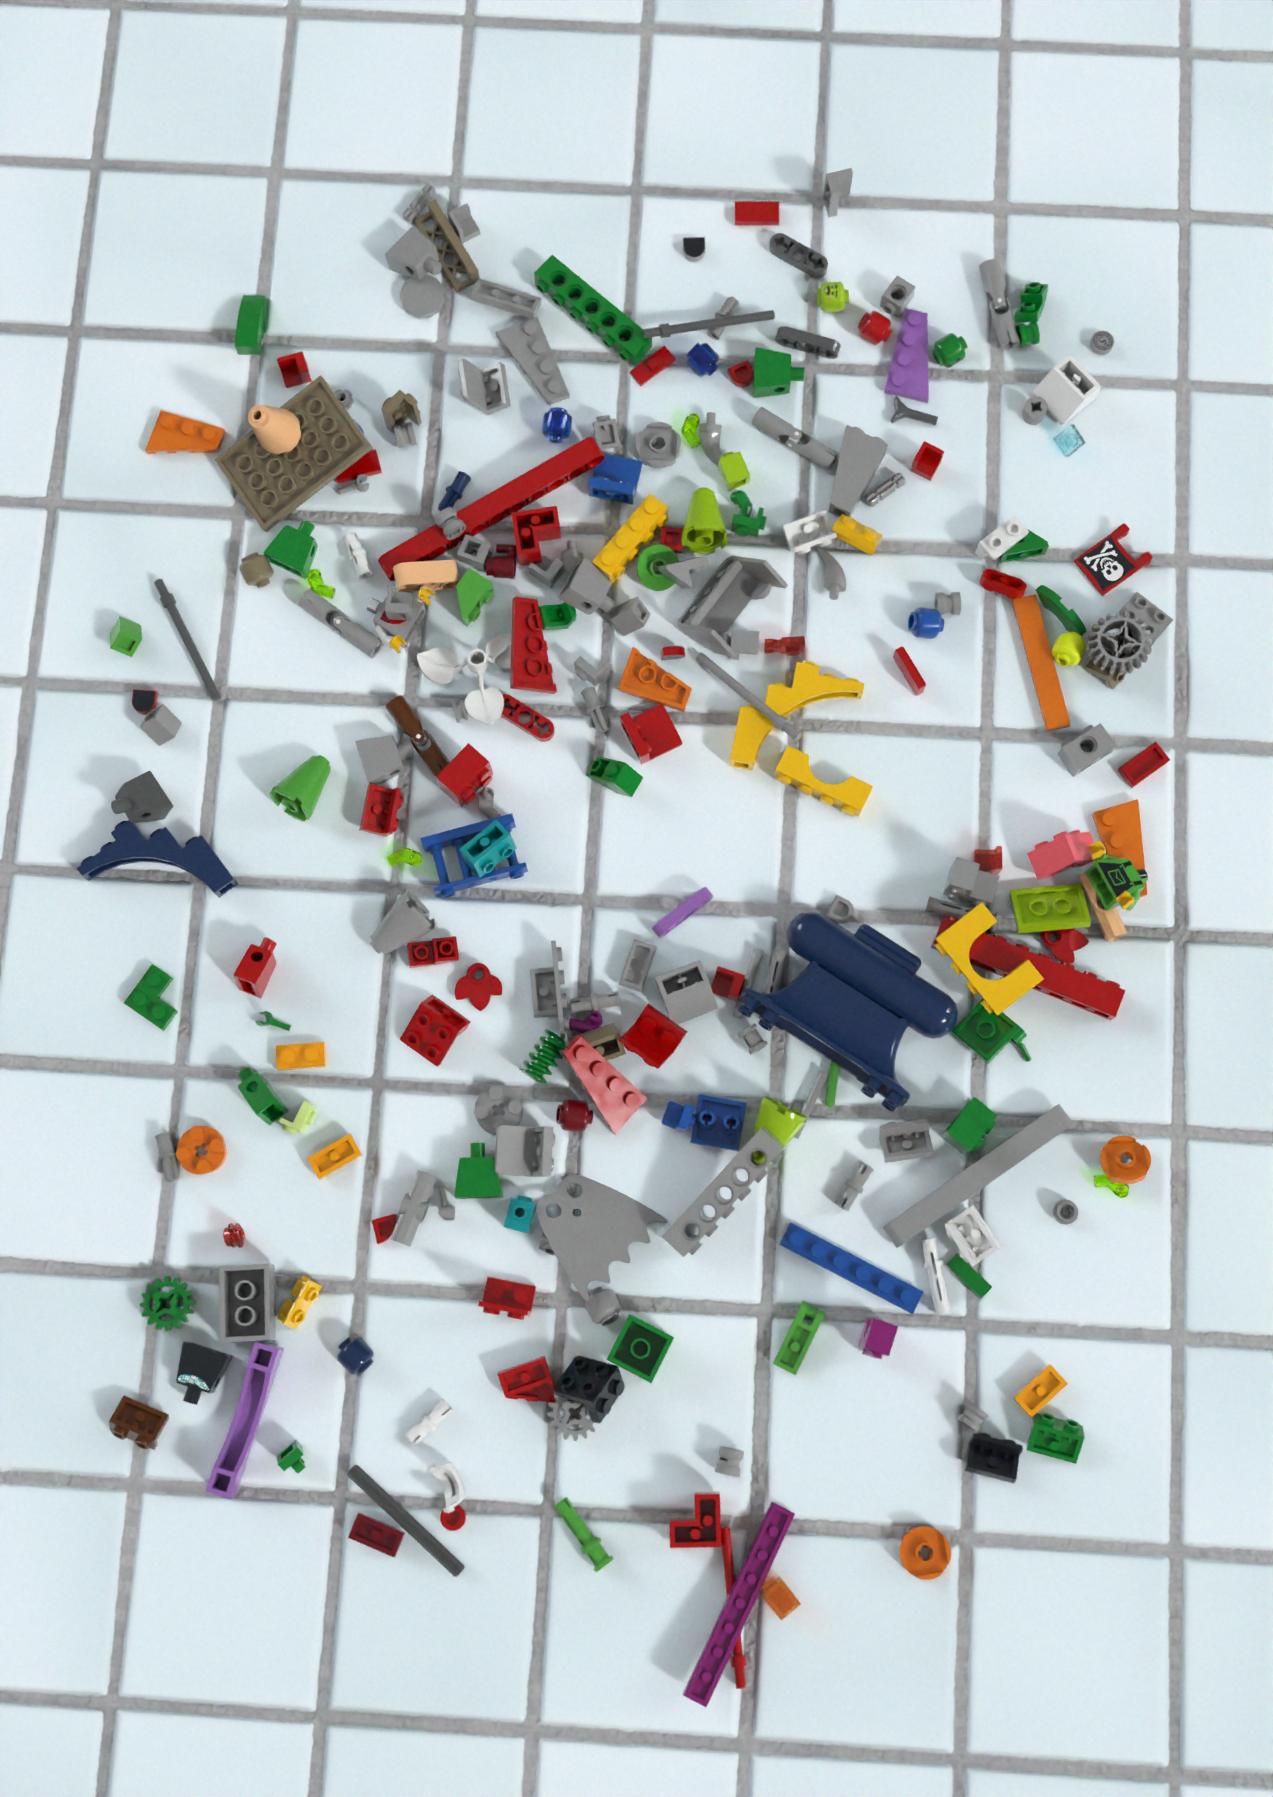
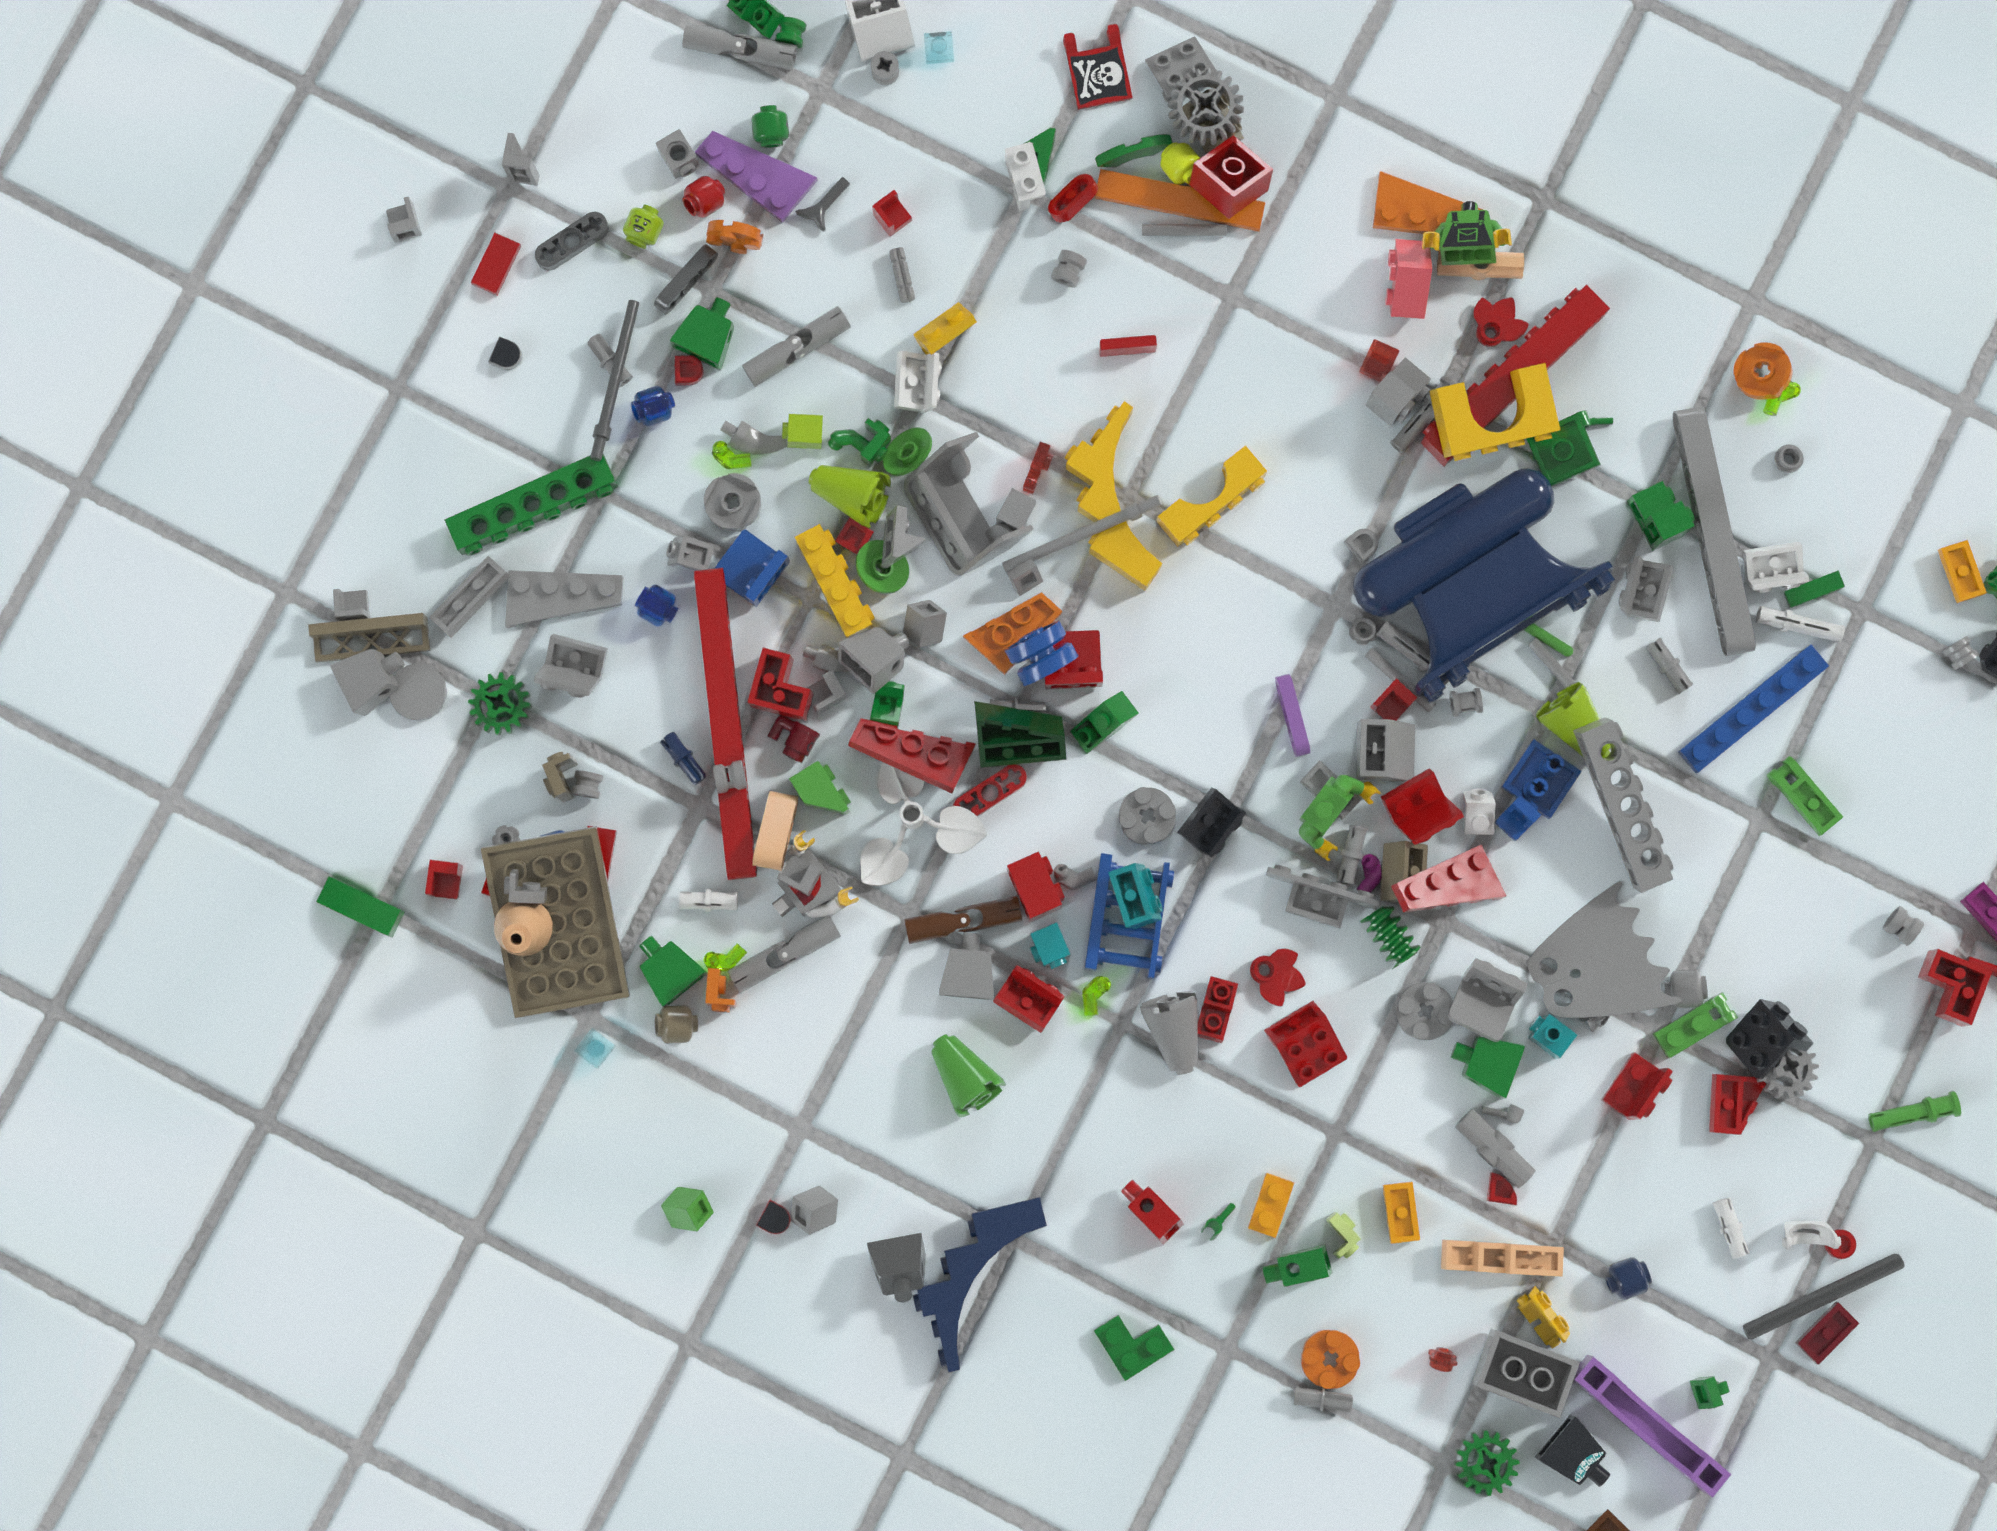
camera: 70 degrees left, 5 degrees up
(168, 601) = (664, 1142): dark grey bar -> none
(184, 434) = (462, 1043): orange wing -> none
(216, 523) = (595, 1048): none -> clear light blue plate
(290, 583) = (715, 986): none -> orange bracket
(300, 416) = (529, 893): none -> light grey bracket
(331, 1250) = (1502, 1258): none -> light nougat slope
(361, 487) = (620, 869): light grey hand -> none
(419, 203) = (296, 646): light grey axle -> none
(427, 808) = (1049, 946): none -> teal brick
(446, 356) = (504, 692): none -> green gear
(459, 711) = (951, 861): light grey bush -> none
(470, 545) = (771, 755): light grey brick -> none
(566, 849) = (1145, 799): none -> light grey plate
(572, 886) = (1212, 823): none -> black bracket
(573, 714) = (1017, 736): none -> dark green wedge
(574, 1115) = (1468, 931): dark red head -> none
(577, 1326) = (1694, 1026): none -> bright green plate
(586, 671) = (966, 700): light grey bracket -> none
(620, 964) = (1328, 806): none -> bright green torso
(640, 1348) = (1750, 968): green brick -> none
(643, 699) = (1040, 650): none -> blue wheel
(652, 366) = (629, 466): red piece -> none
(671, 1085) = (1479, 812): none -> white bracket
(672, 652) = (989, 595): red tile -> none
(697, 672) = (1025, 577): none -> light grey plate
(752, 547) = (907, 451): none -> bright green dish
(757, 140) = (403, 221): none -> light grey panel
(772, 932) = (1363, 623): none -> light grey plate
(834, 578) = (980, 376): light grey bar -> none
(855, 357) = (737, 236): none -> orange plate
(856, 467) = (865, 297): light grey slope -> none
(877, 1338) = (1846, 713): magenta arch -> none
(925, 623) = (1081, 302): blue head -> none
(1019, 675) = (1184, 229): none -> light grey bar
(1049, 908) = (1461, 321): lime plate -> none
(1075, 687) = (1231, 176): none -> red brick
(1076, 759) = (1304, 182): light grey brick -> none
(1143, 765) = (1343, 146): red tile -> none

